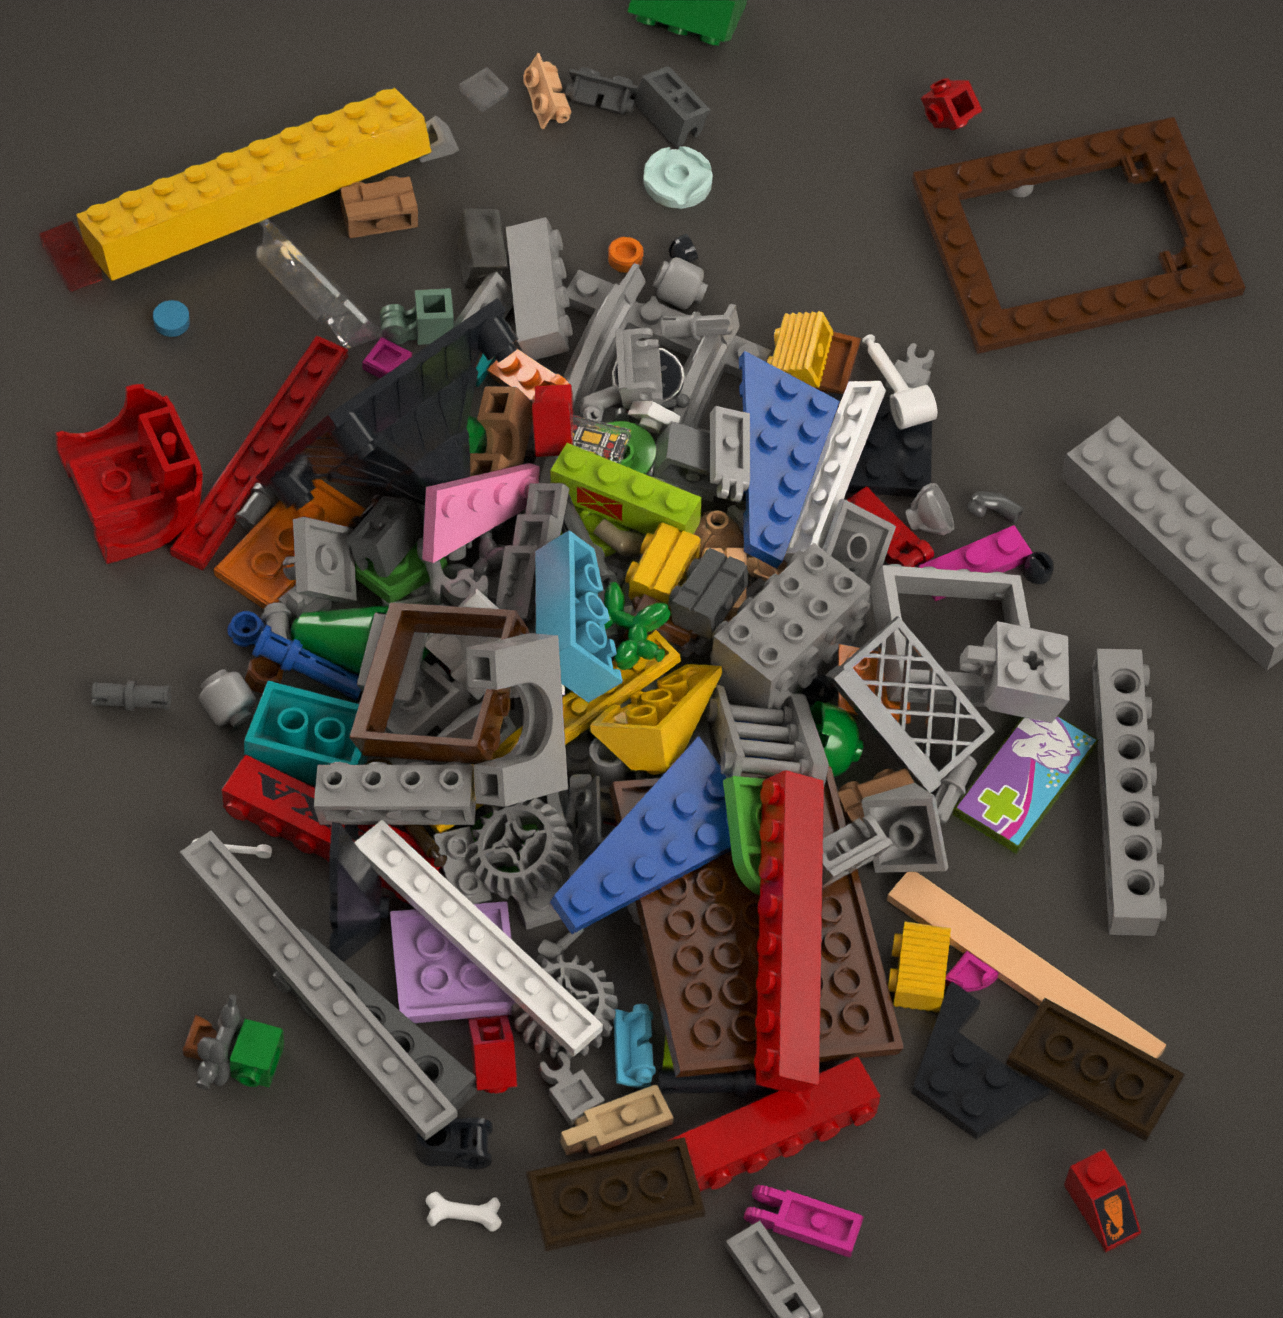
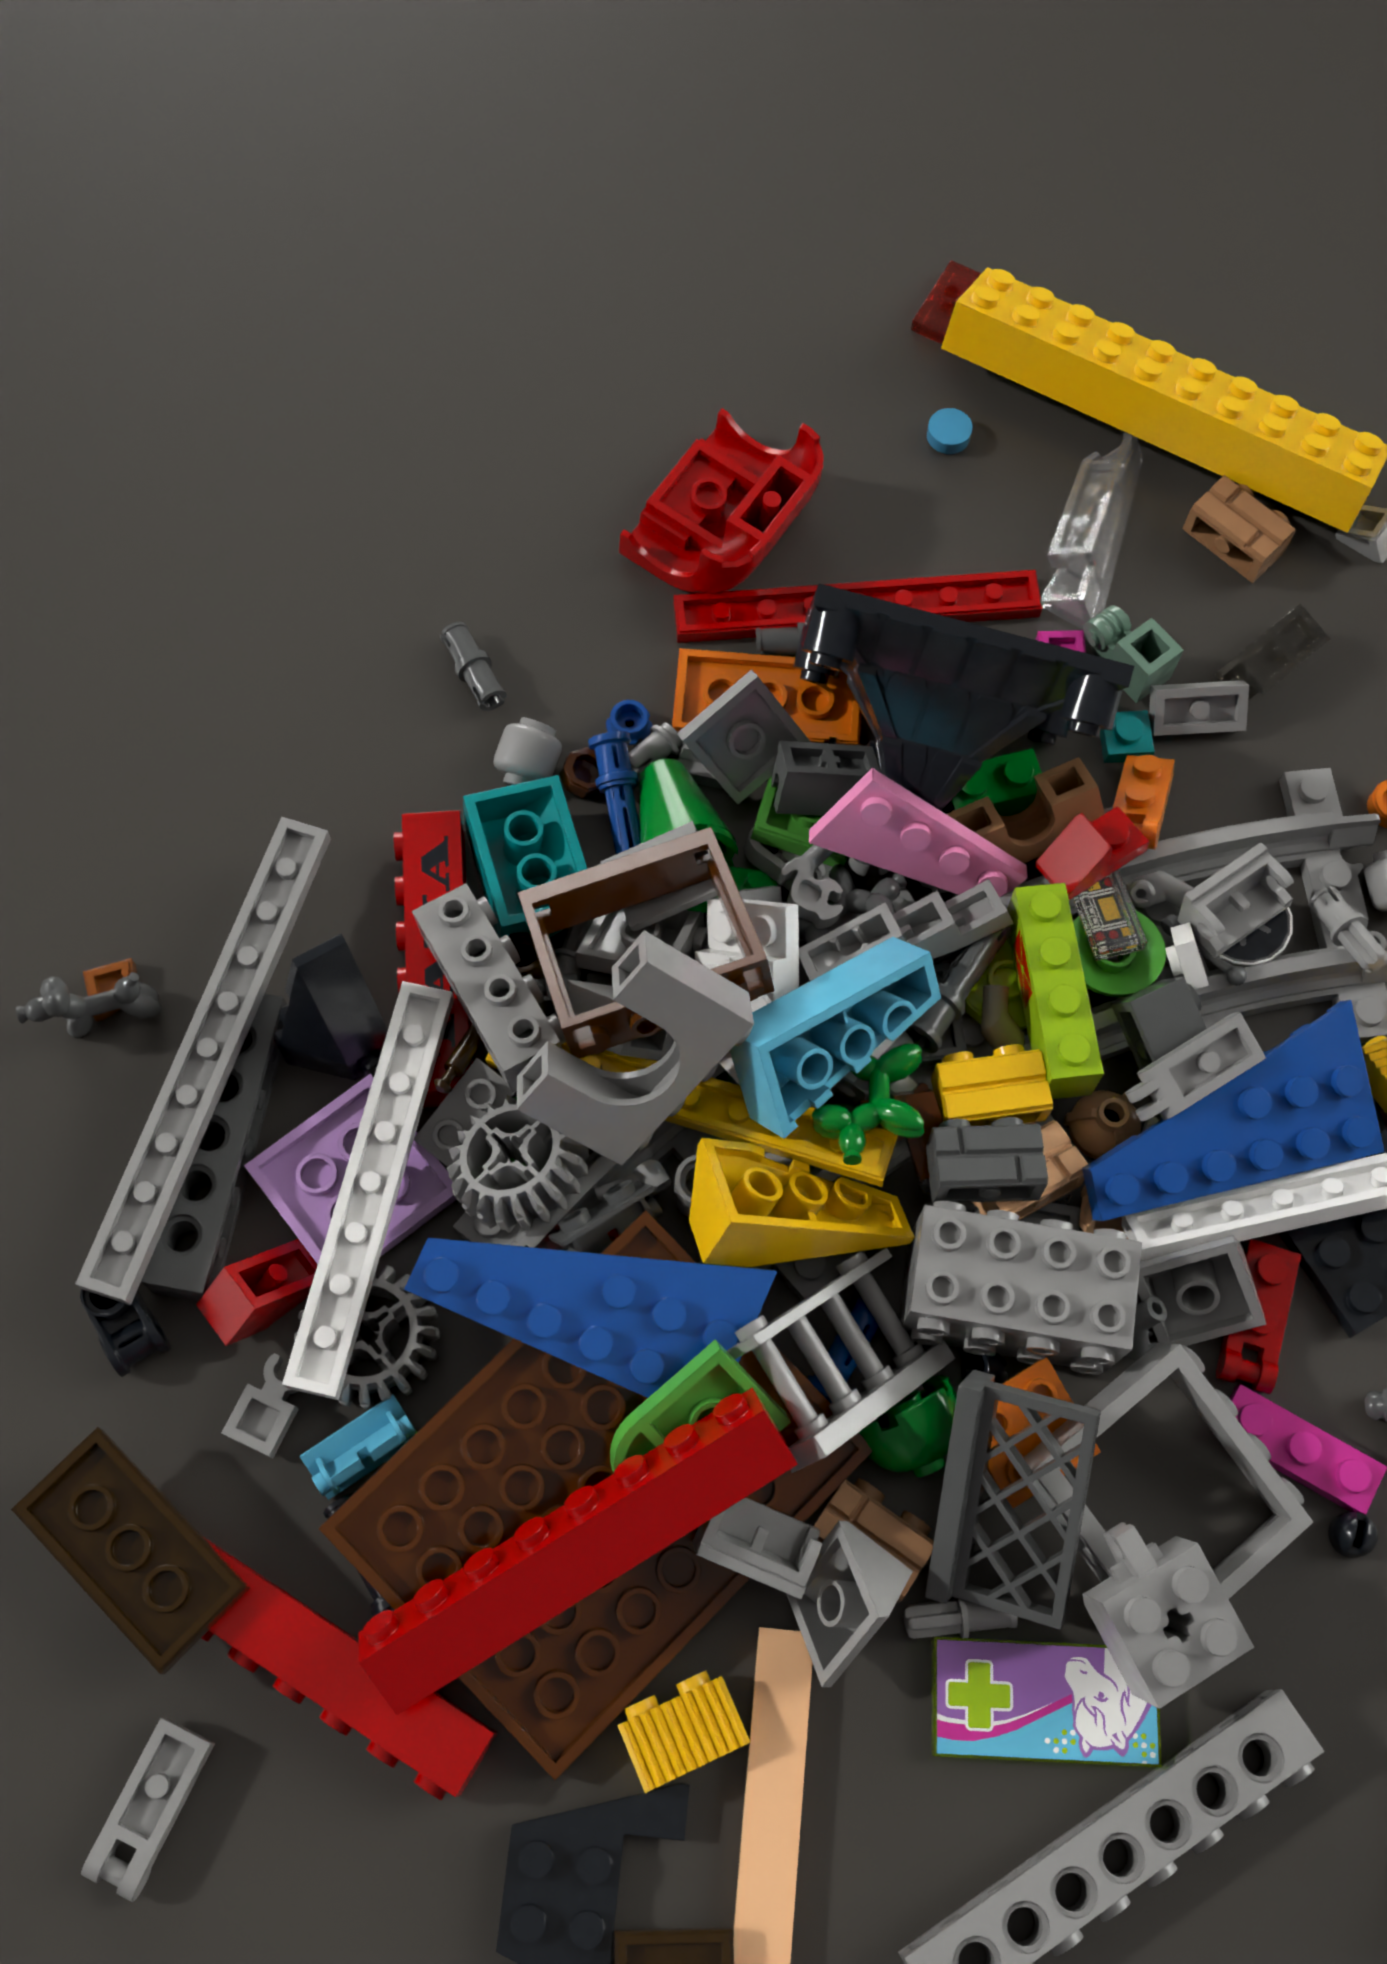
camera: 60 degrees right, 10 degrees up
(256, 1053) = (113, 1046): green brick -> none
(262, 851) = (341, 838): white hinge -> none
(443, 1209) = (58, 1406): white piece -> none
(538, 288) = (1266, 740): light grey brick -> none
(618, 1122) = (257, 1490): tan hinge -> none
(806, 1219) = (251, 1803): dark pink hinge -> none
(930, 511) = (1325, 1354): light grey piece -> none
(971, 973) = (719, 1800): dark pink tile -> none

